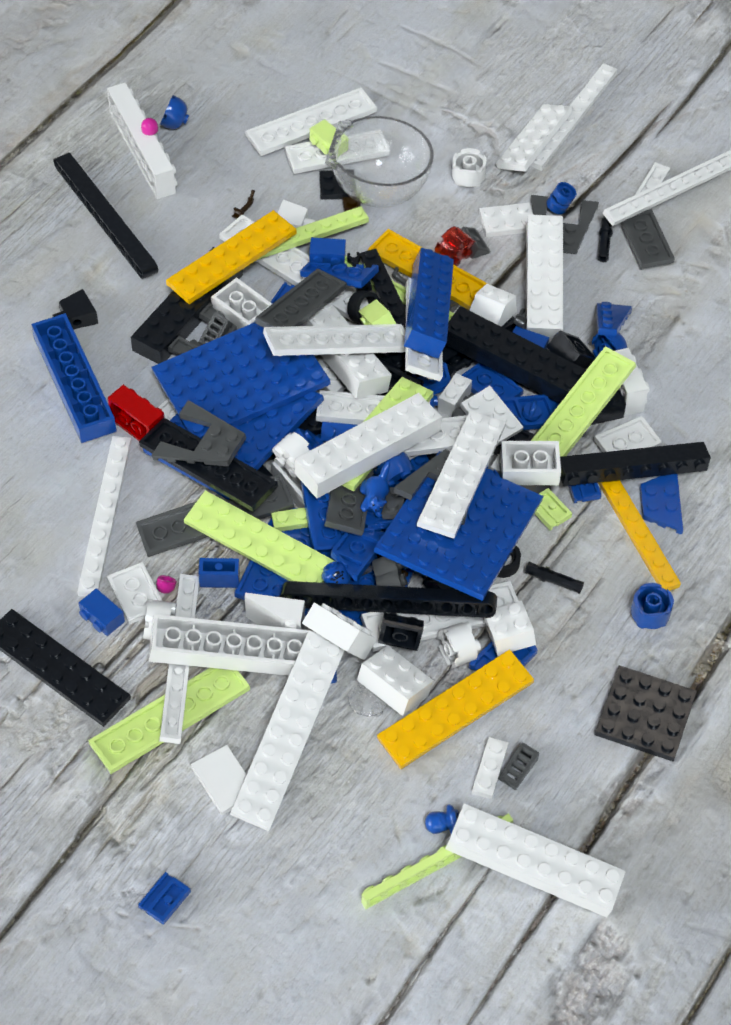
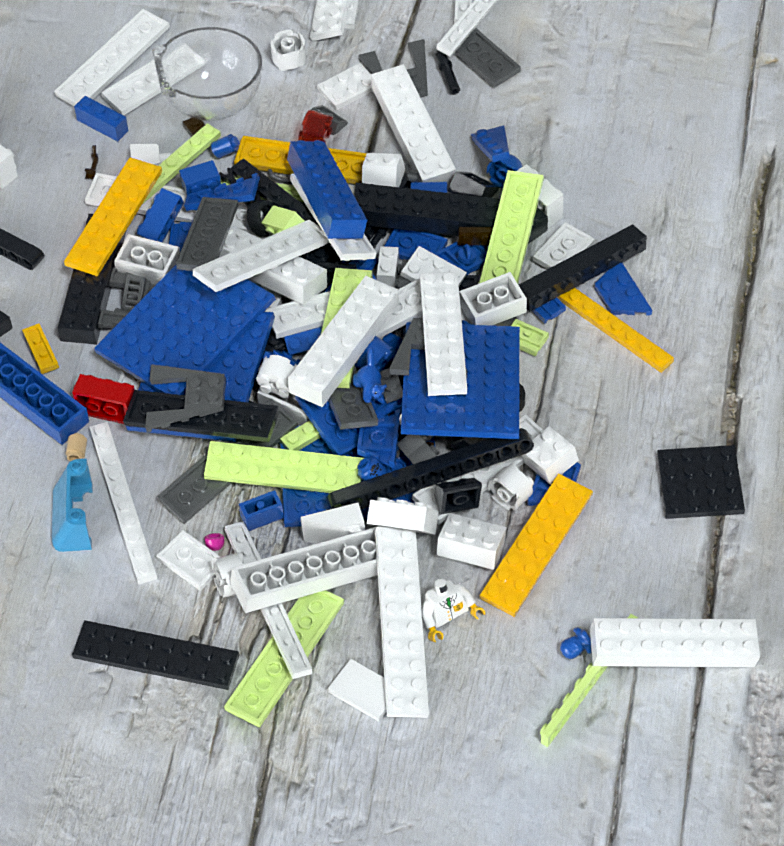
camera: 20 degrees left, 0 degrees up
(66, 483) = (69, 523): none -> dark azure windscreen
(90, 450) = (76, 446): none -> tan brick
(101, 612) = (171, 589): blue brick -> none
(109, 350) = (40, 348): none -> yellow plate
(164, 898) = (368, 811): blue plate -> none
(272, 169) = (101, 118): none -> blue brick
(274, 273) = (160, 216): none -> blue brick
(322, 135) = (139, 70): yellowish green brick -> none
(329, 187) = (165, 114): black plate -> none
(339, 729) = (444, 604): none -> white torso
(366, 232) = (225, 146): none -> blue brick
(490, 768) = (592, 583): white plate -> none
(525, 754) = (616, 558): dark grey slope -> none
(547, 395) = (474, 235): none -> dark brown plate
(559, 579) = (562, 396): black pin -> none
(561, 198) = (389, 47): blue wheel -> none
(652, 606) = (660, 387): blue brick -> none

